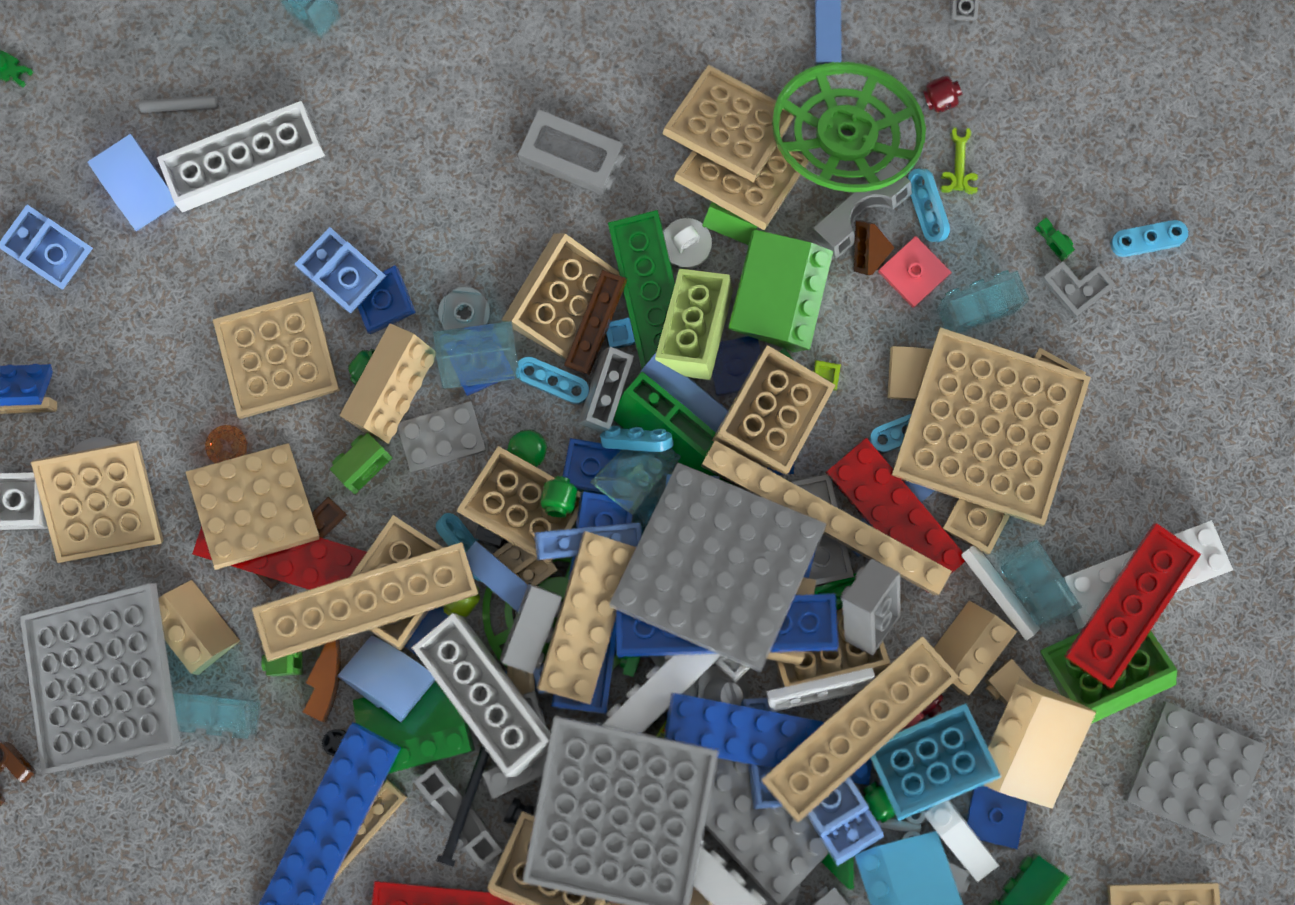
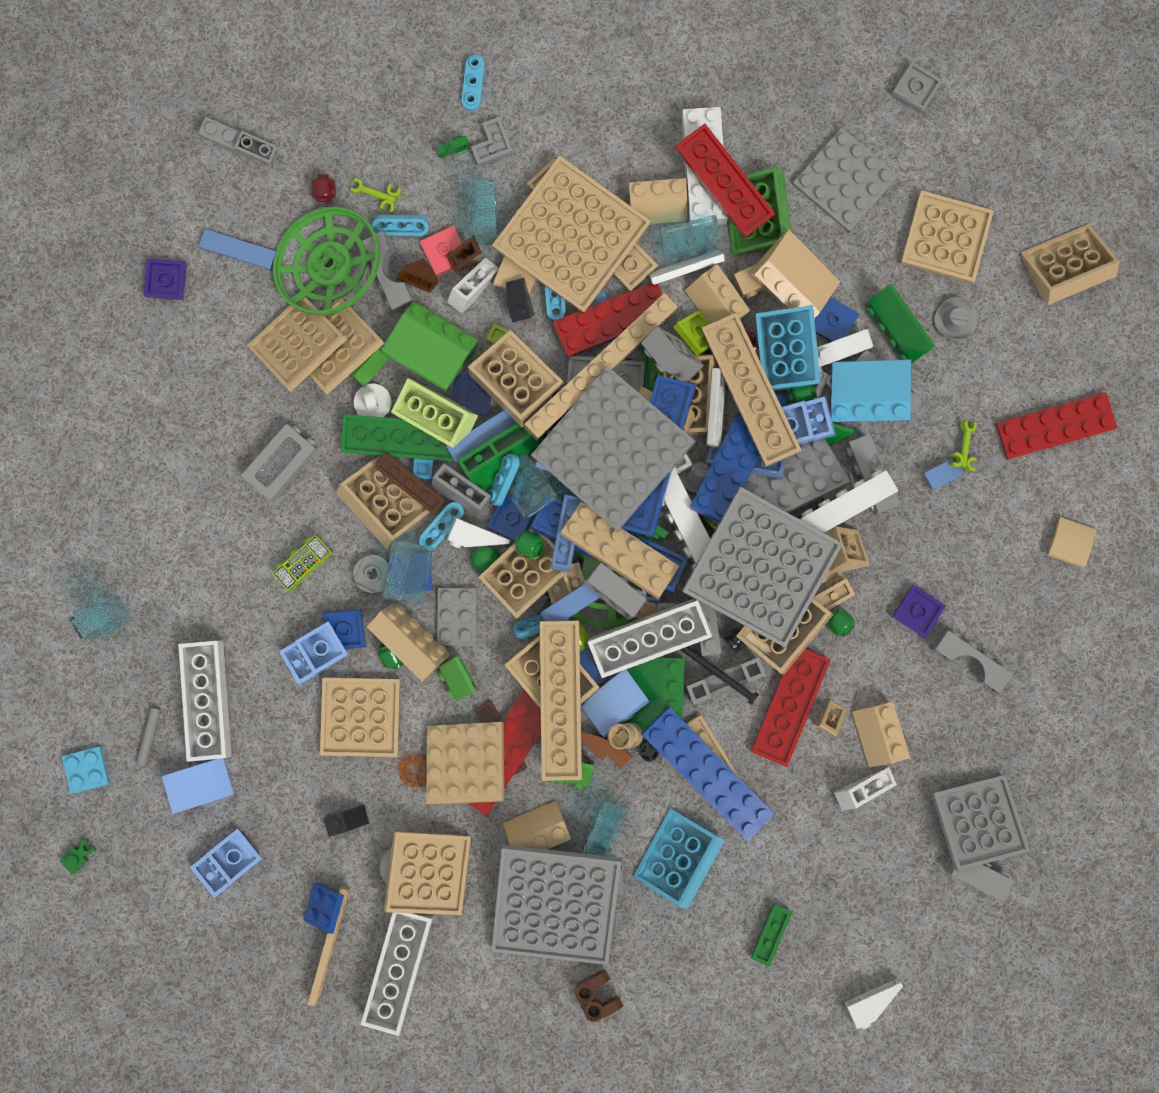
camera: 75 degrees left, 5 degrees up
(116, 43) = (85, 770): none -> medium azure plate
(138, 378) = (346, 820): none -> black slope
(205, 827) = (678, 858): none -> medium azure slope
(346, 703) = (625, 735): none -> tan wheel
(452, 220) = (302, 562): none -> brick
(550, 418) = (470, 535): none -> white slope
(879, 385) = (518, 300): none -> black slope
(880, 320) = (472, 285): none -> white slope
(913, 624) = (690, 331): none -> lime plate
(915, 297) = (465, 255): none -> reddish brown slope
(1078, 529) = (660, 200): none -> tan slope

